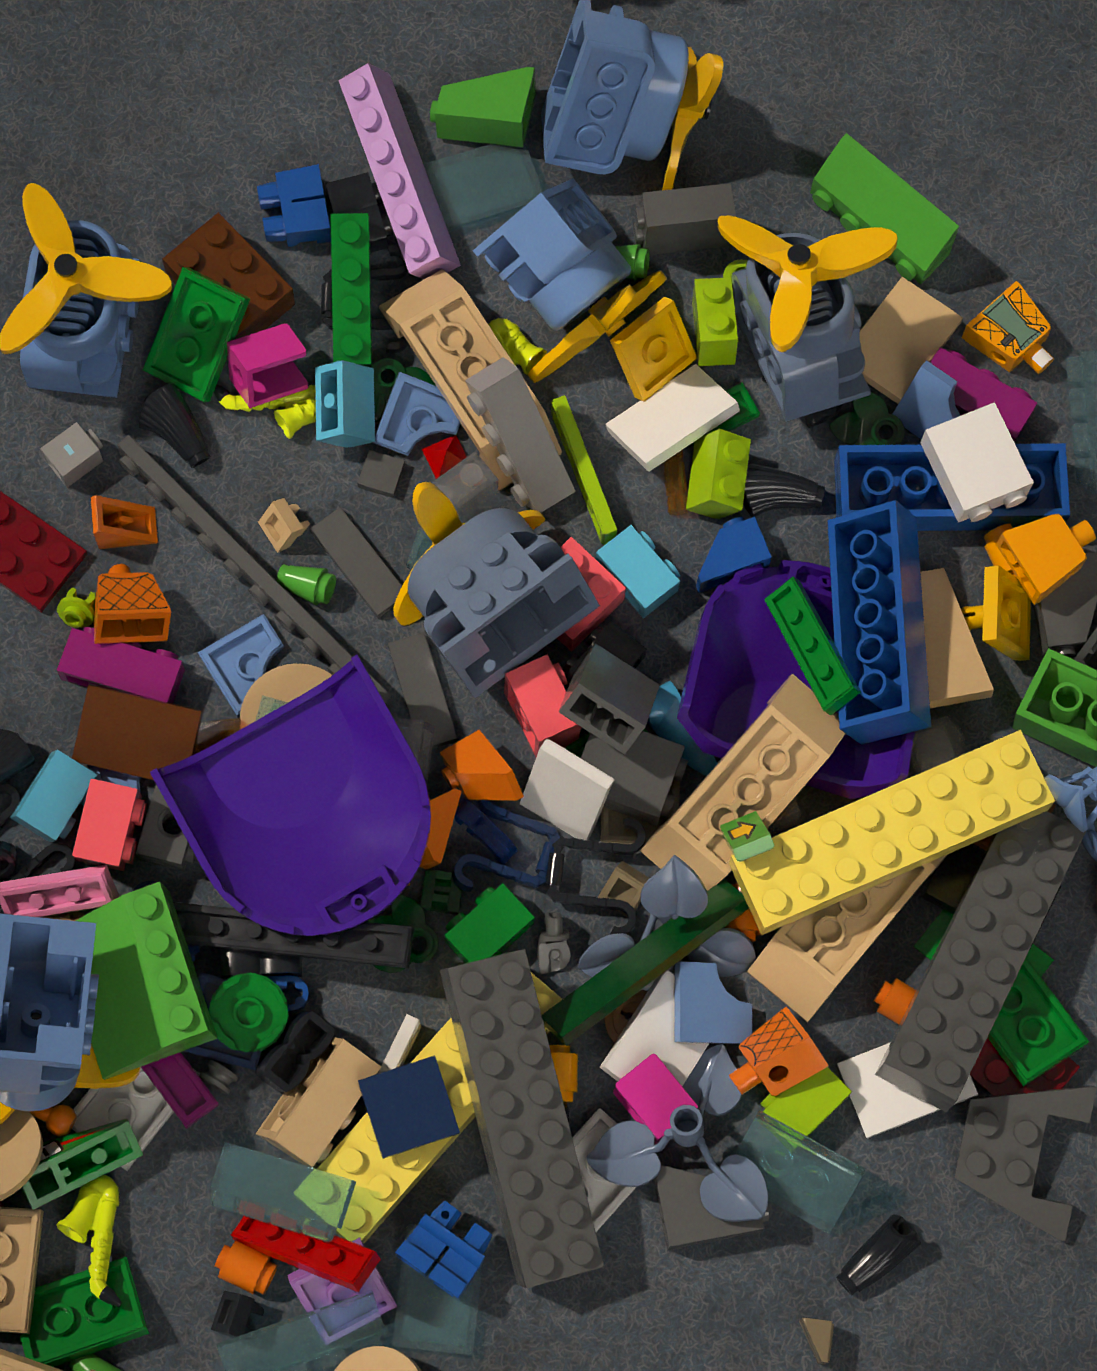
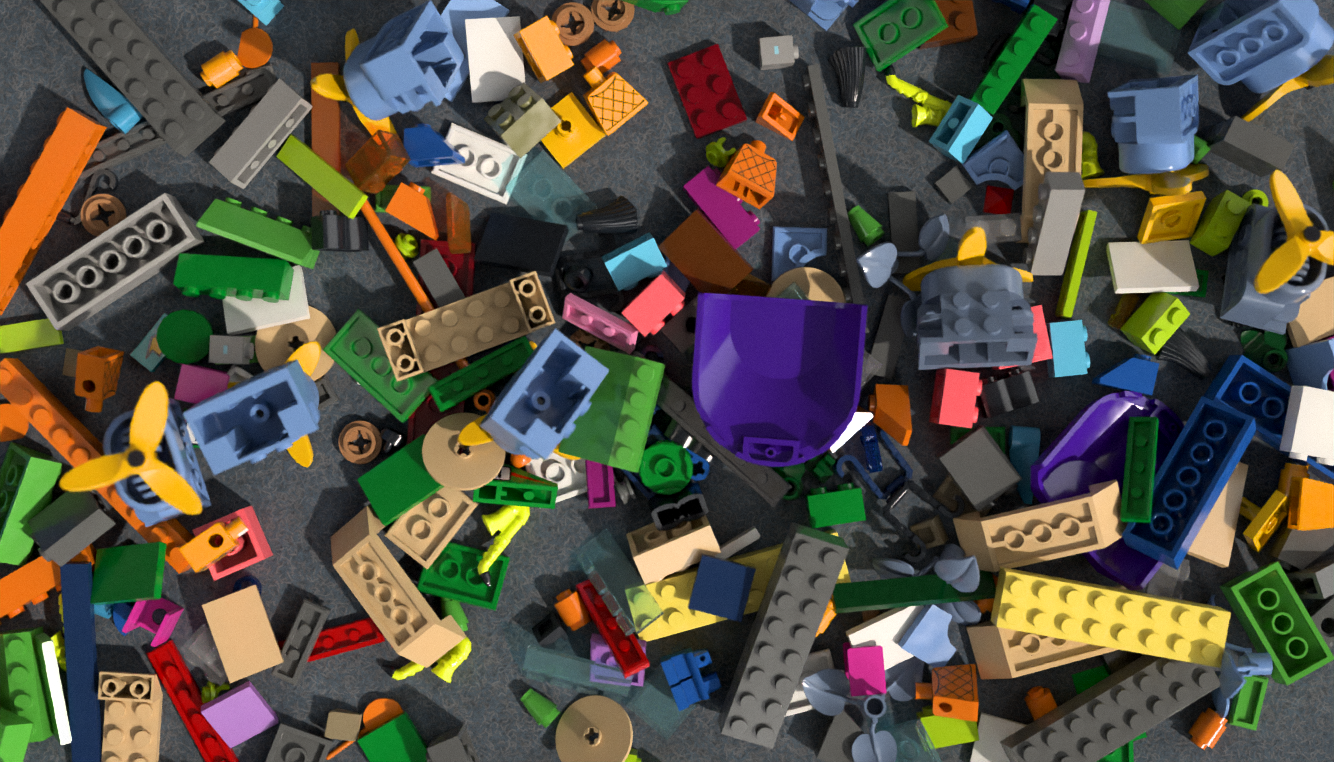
camera: 35 degrees right, 15 degrees up
(266, 365) = (928, 72): dark pink piece -> none
(281, 524) = (873, 179): tan tile -> none
(352, 609) = (881, 262): none -> sand blue plant
(552, 946) = (866, 537): dark grey piece -> none
(566, 790) = (935, 461): white tile -> none
(609, 699) = (998, 426): dark grey brick -> none
(747, 836) = (1023, 566): bright green tile -> none

